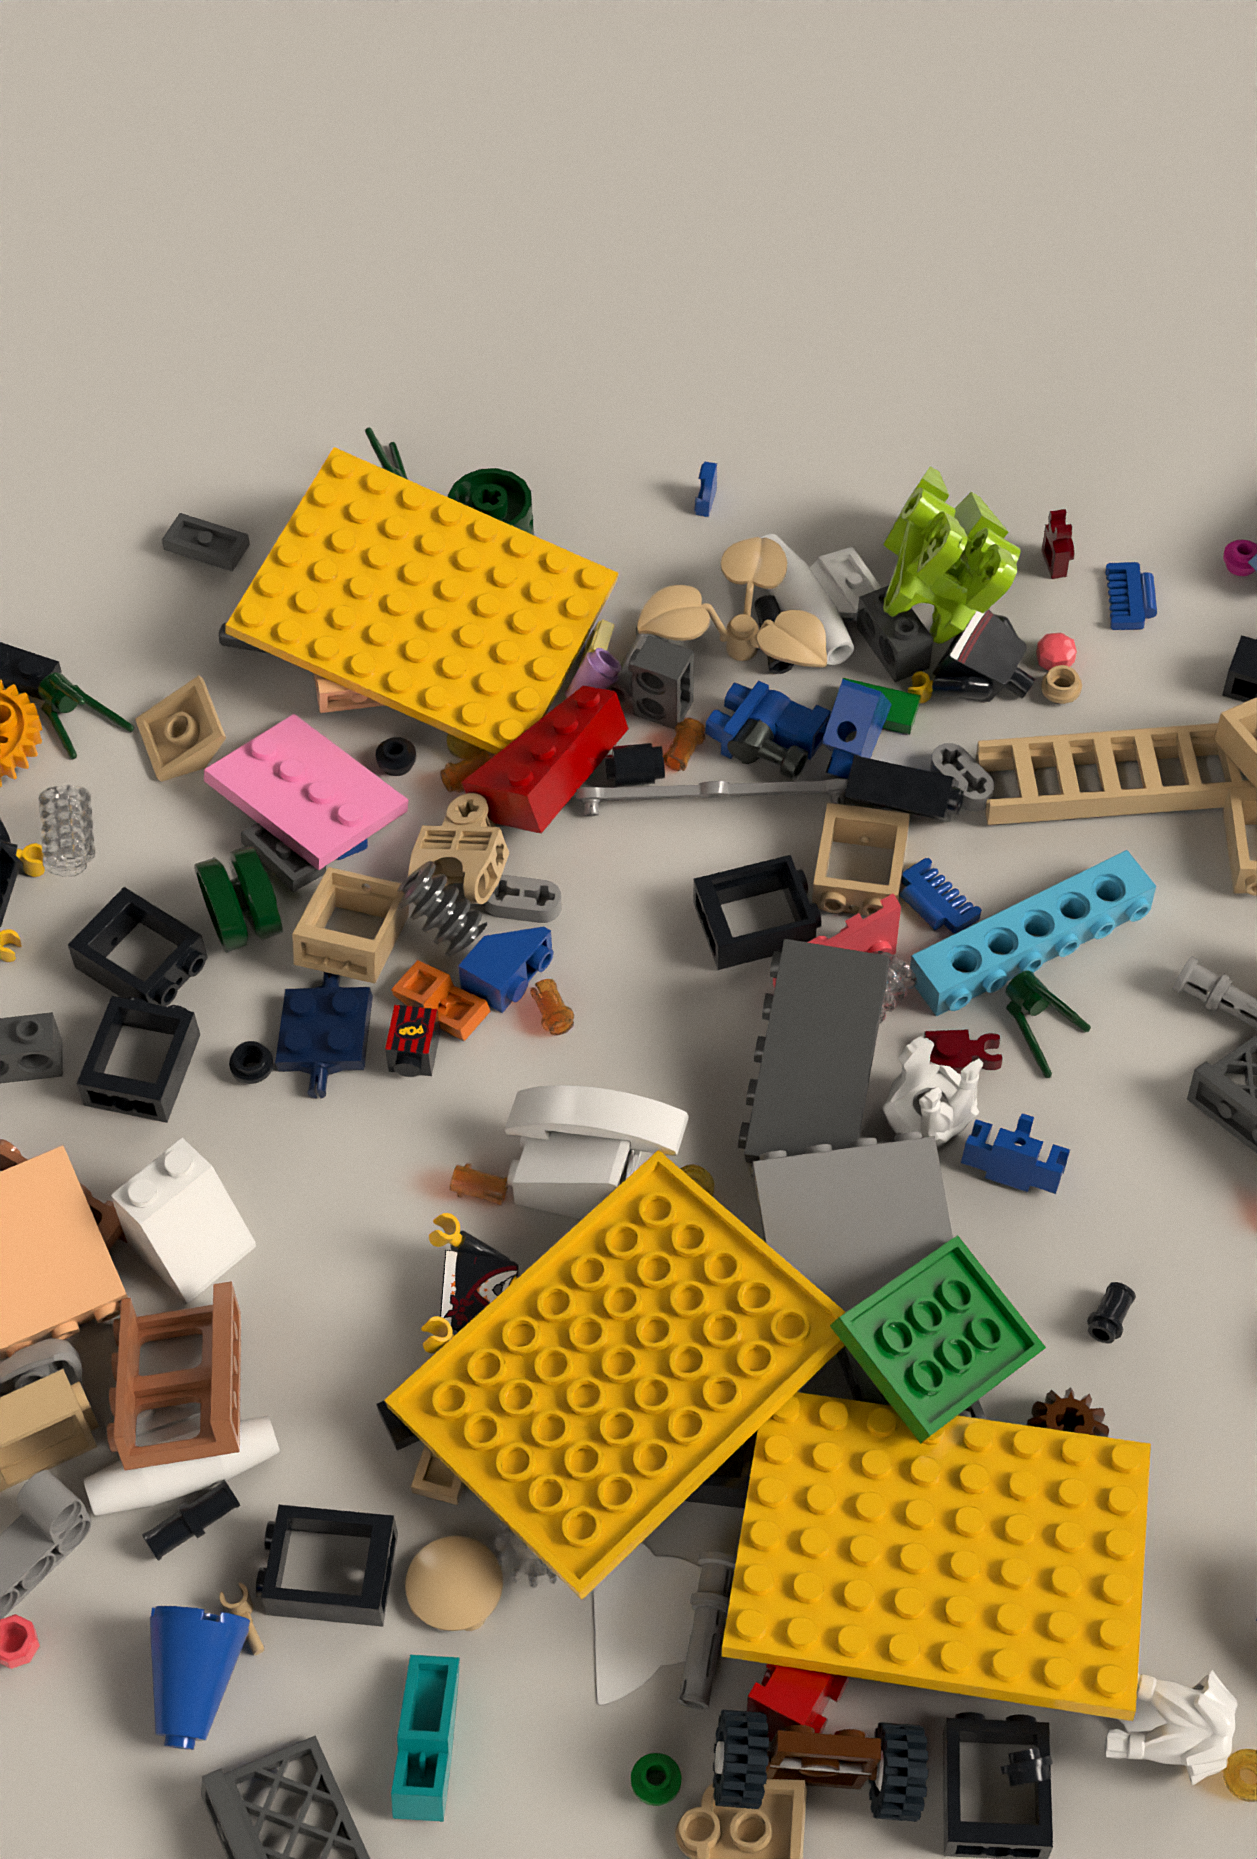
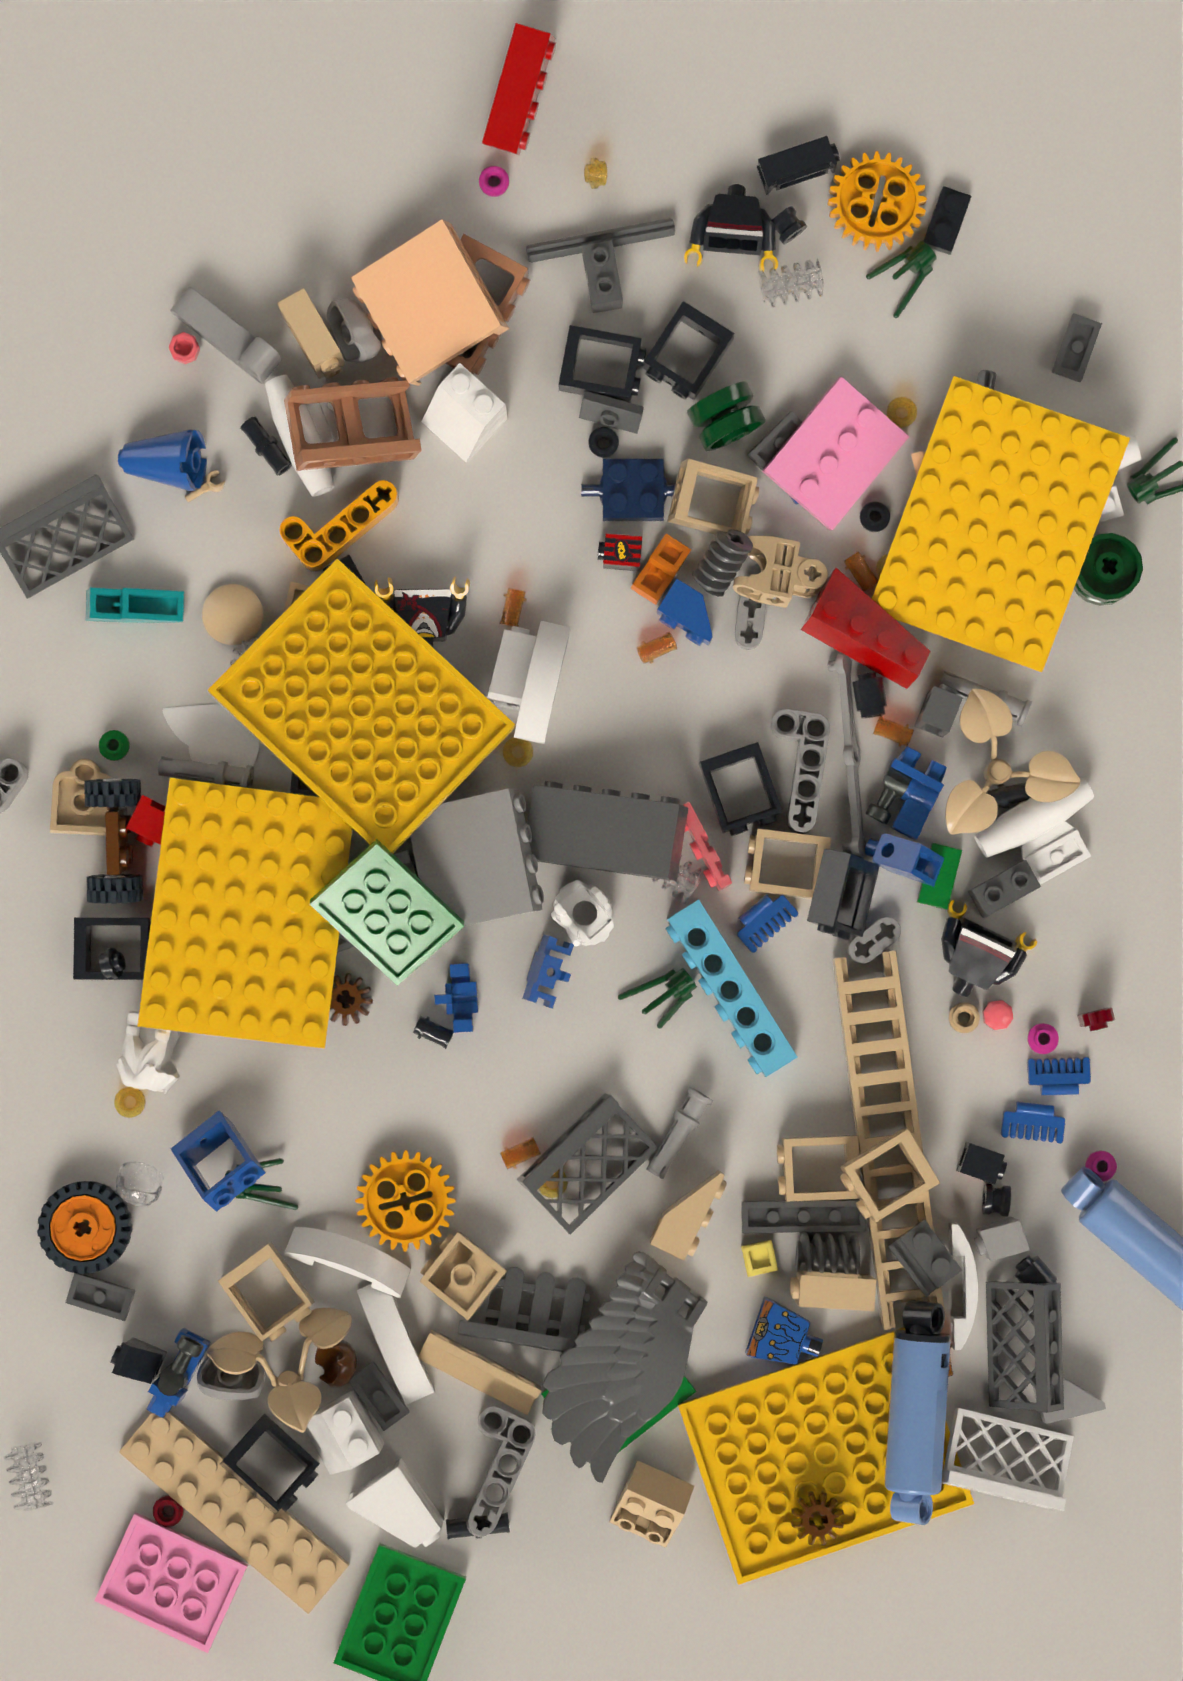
camera: 85 degrees right, 30 degrees up
(181, 731) = (888, 353): tan slope -> none
(210, 1047) = (611, 412): none -> dark grey plate
(255, 715) = (908, 405): none -> clear yellow plate
(326, 1405) = (343, 521): none -> light orange beam
(326, 1606) = (233, 566): black window -> none
(596, 670) = (949, 661): lavender cone -> none
(598, 638) = (980, 660): light yellow tile -> none
(708, 489) = (1154, 739): blue tile -> none
(746, 837) = (802, 772): none -> light grey beam
(948, 557) = (1098, 921): lime piece -> none
(956, 1049) = (633, 930): dark red plate -> none
(1058, 1276) = (460, 998): none -> blue piece
(1084, 608) = (1033, 1042): none -> dark pink plate
(1192, 623) = (1036, 1115): none -> blue piece

